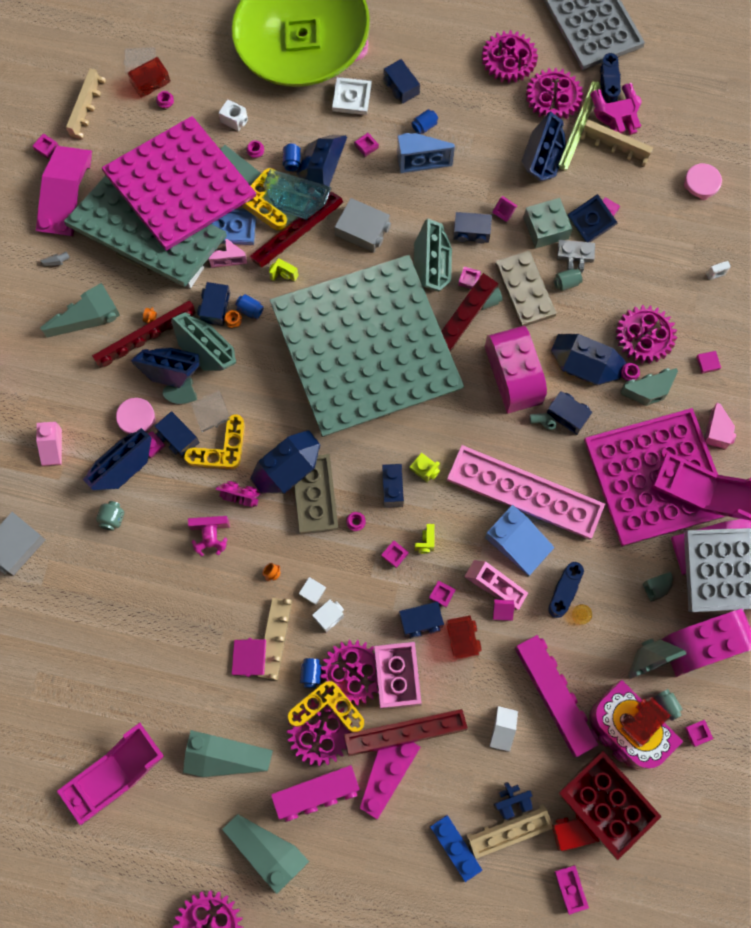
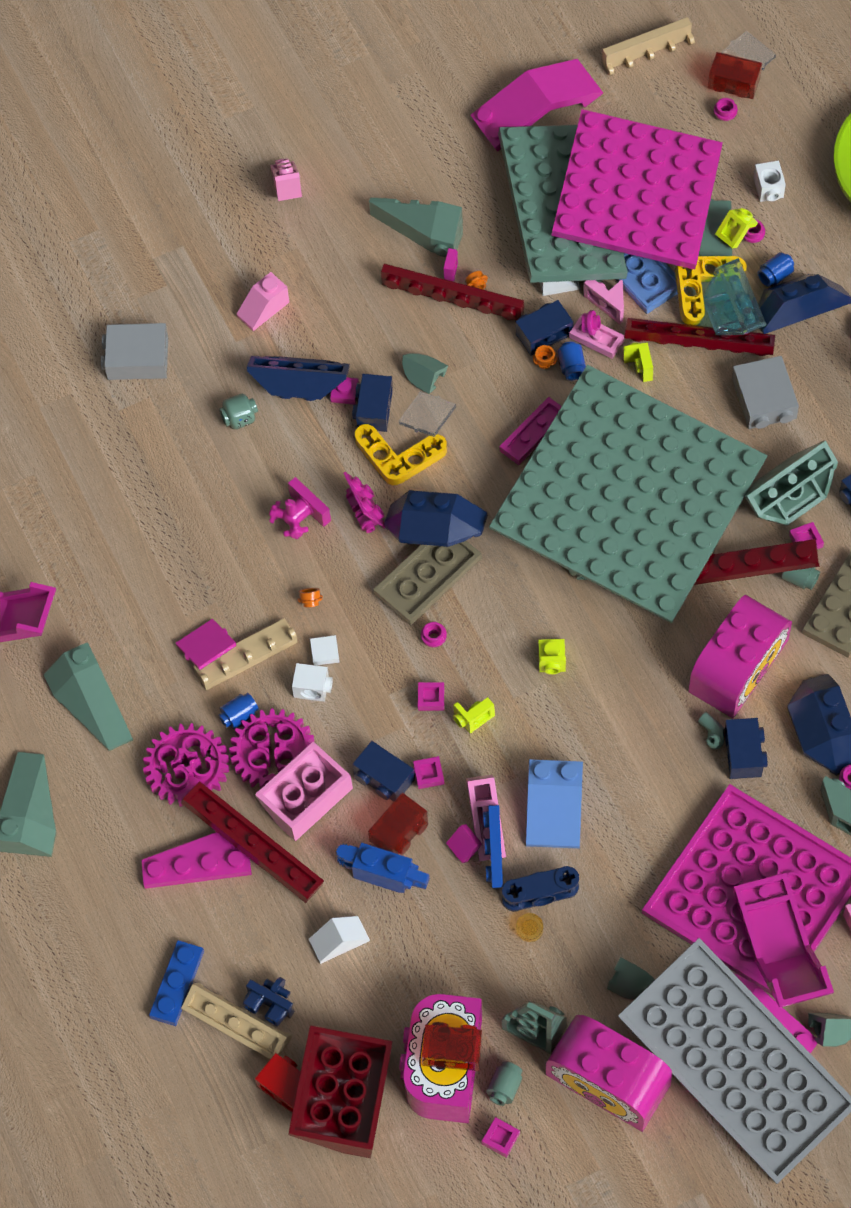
camera: 55 degrees right, 10 degrees down
(45, 145) = (567, 49): dark pink plate -> none
(55, 259) = (457, 156): light grey bar -> none
(125, 319) = (451, 264): none -> dark pink tile
(135, 414) = (361, 350): bright pink tile -> none
(167, 365) = (436, 335): dark blue wedge -> none
(201, 338) = (492, 348): sand green wedge -> none
(238, 276) = (590, 322): none -> dark pink plate
(246, 281) = (604, 341): none -> bright pink plate
(247, 154) = (735, 226): none -> neon yellow bracket
(275, 363) = (530, 432): none -> dark pink plate
(315, 792) = (121, 803): dark pink brick -> none
(331, 701) = (224, 746): yellow beam -> none
(392, 485) = (501, 637): dark blue brick -> none
(482, 668) = (381, 867): none -> blue hinge
(523, 595) = (493, 846): none -> blue plate
(526, 492) = (614, 773): bright pink plate -> none
(556, 696) = (416, 961): dark pink brick -> none
(571, 889) = (225, 1124): dark pink plate -> none

